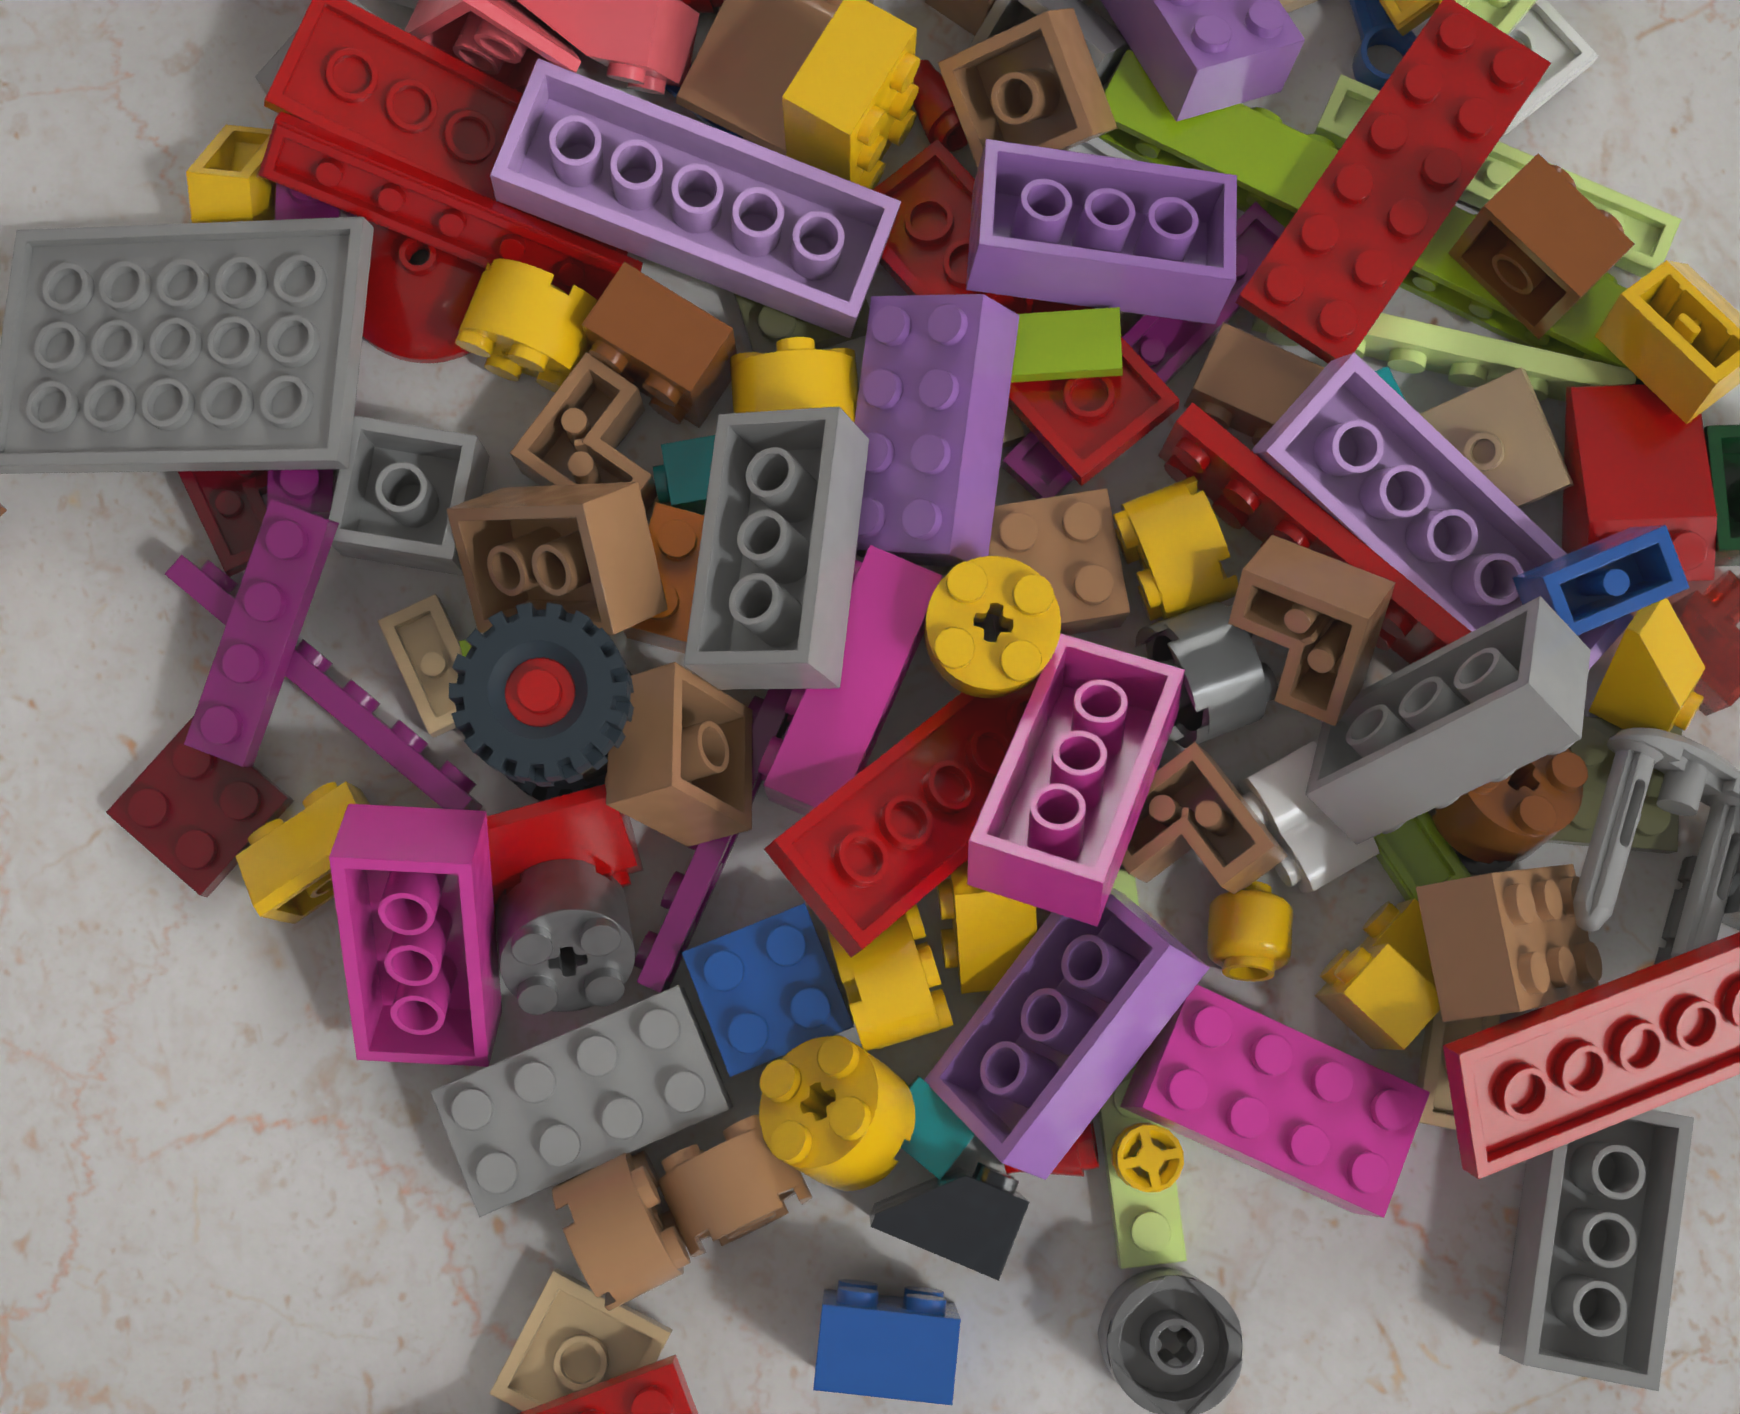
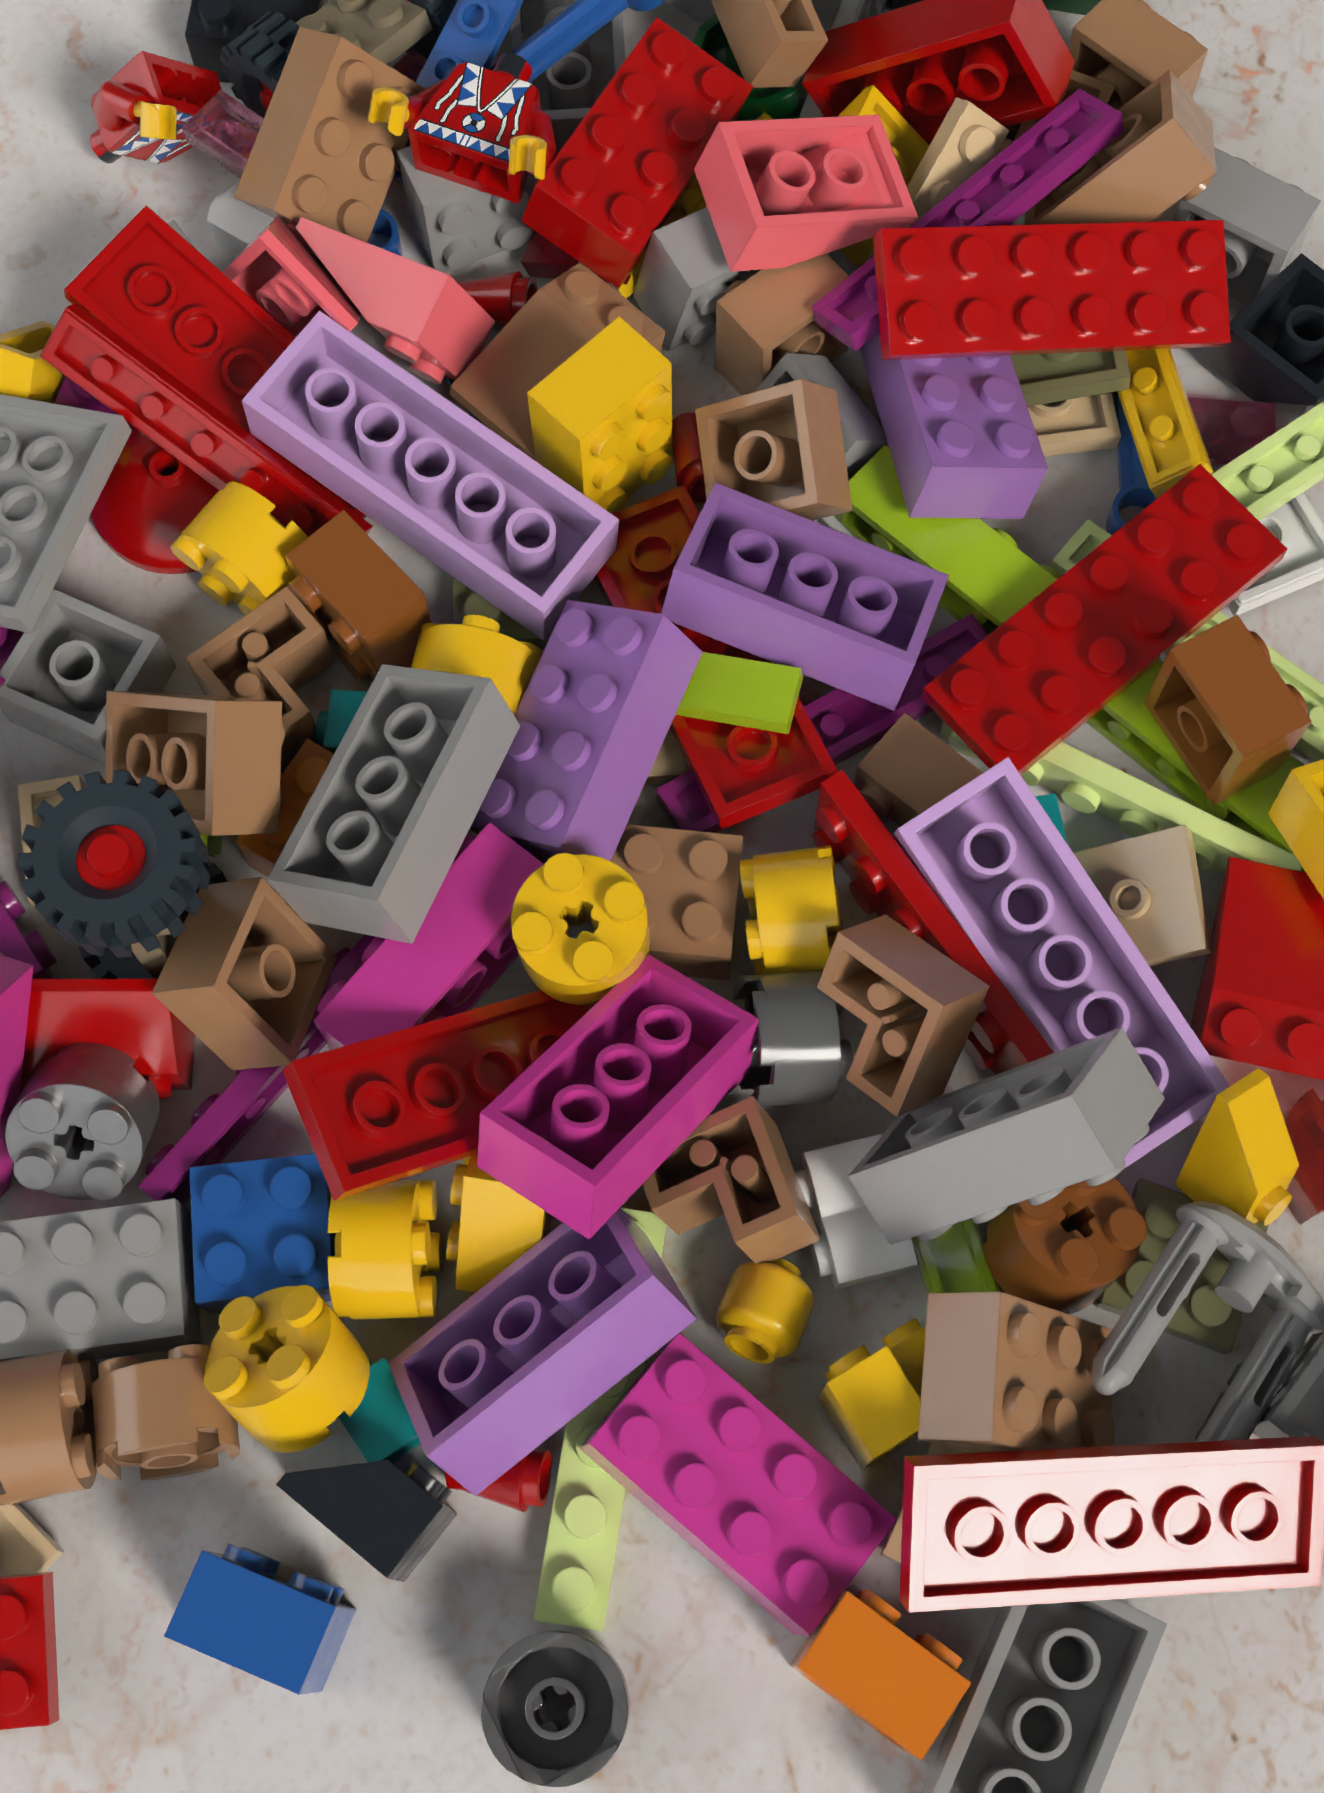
camera: 20 degrees right, 10 degrees down
(1161, 1165) = (577, 1492): yellow wheel -> none
(1462, 1234) = (881, 1673): none -> orange brick
(1607, 578) = (1205, 1037): blue brick -> none

